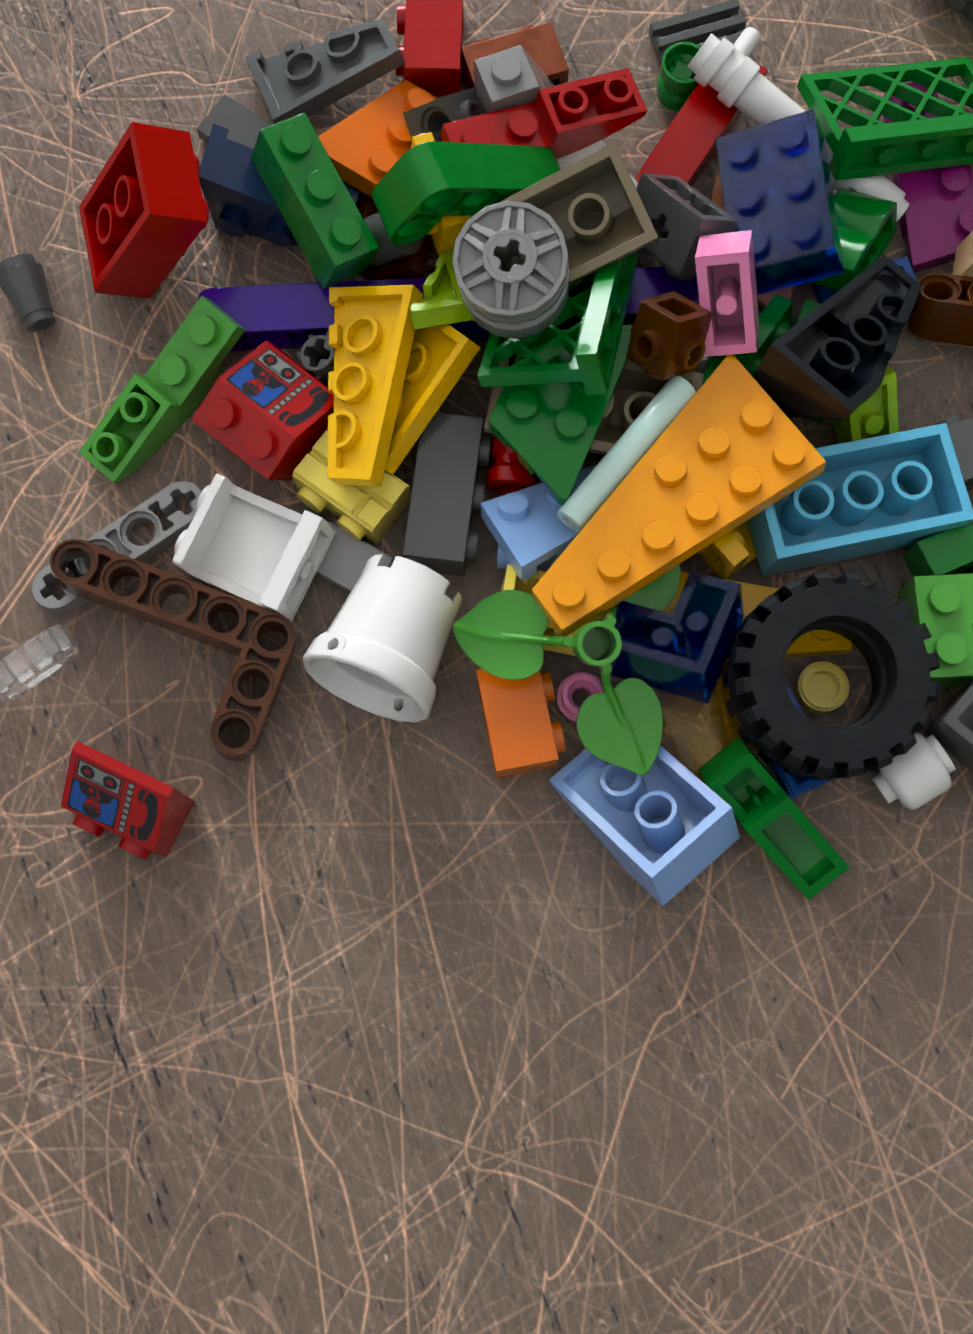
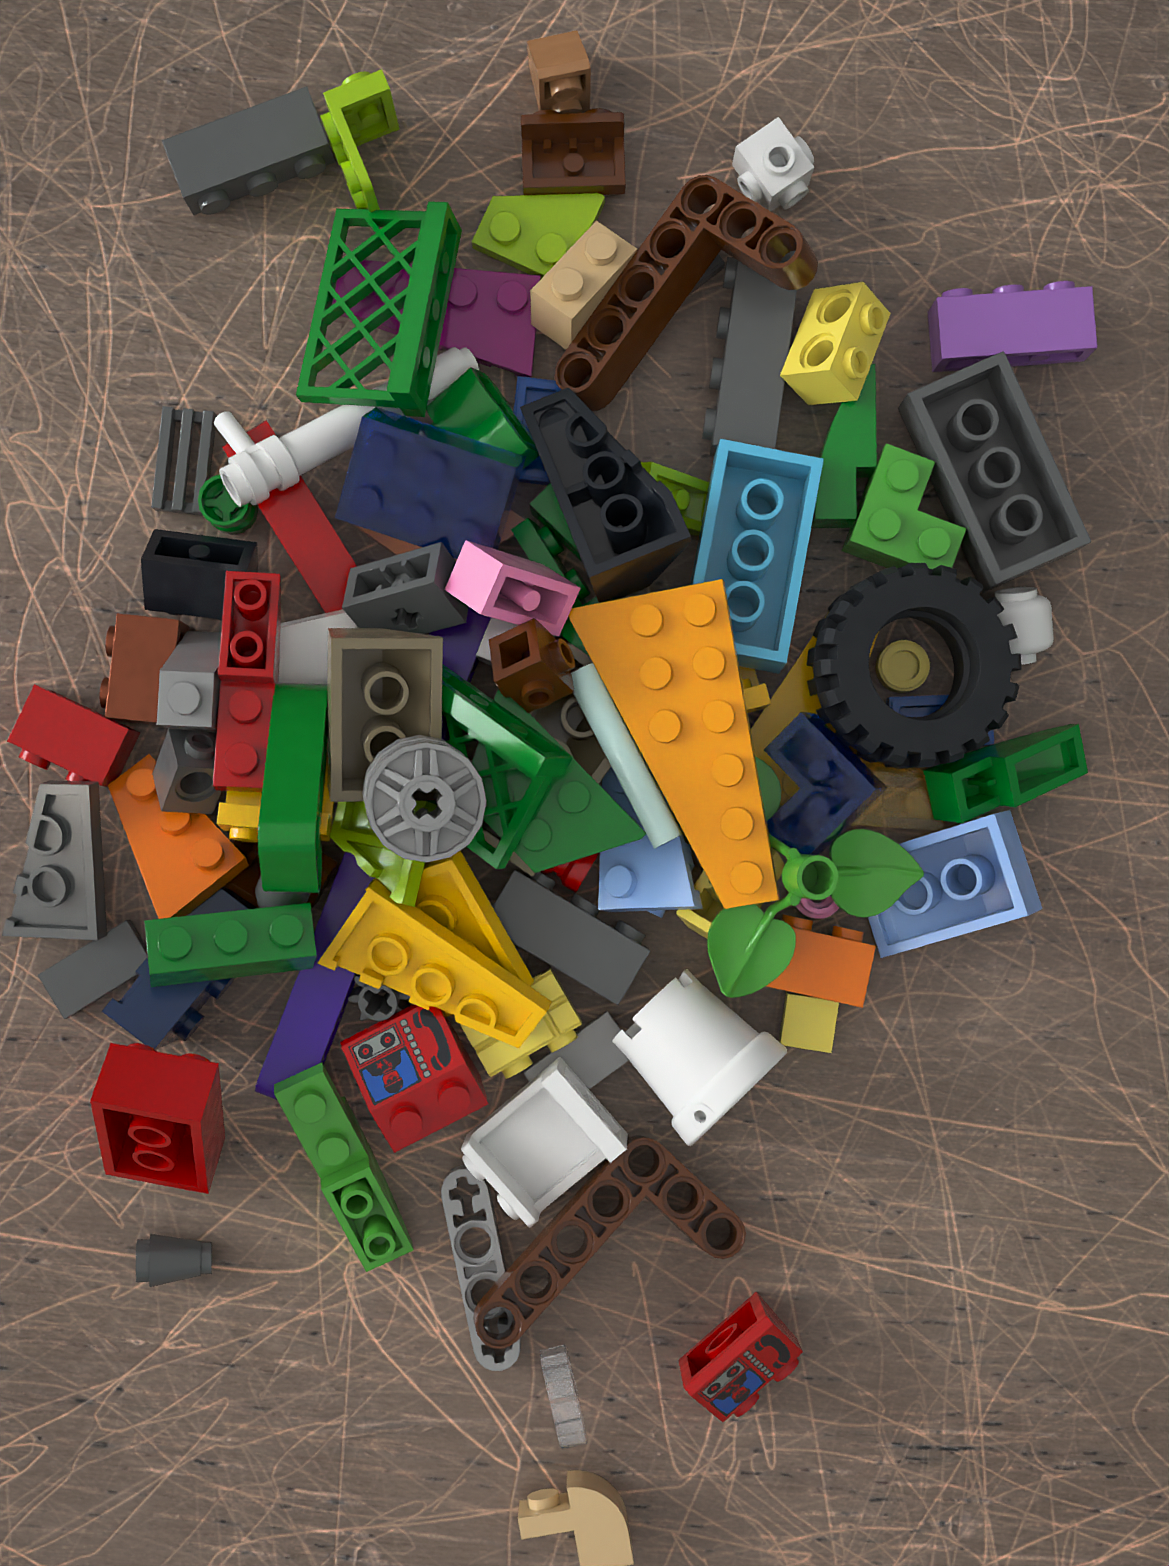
camera: 70 degrees left, 10 degrees up
(460, 740) = (808, 1022): none -> light yellow tile
(610, 46) = (189, 571): none -> black brick

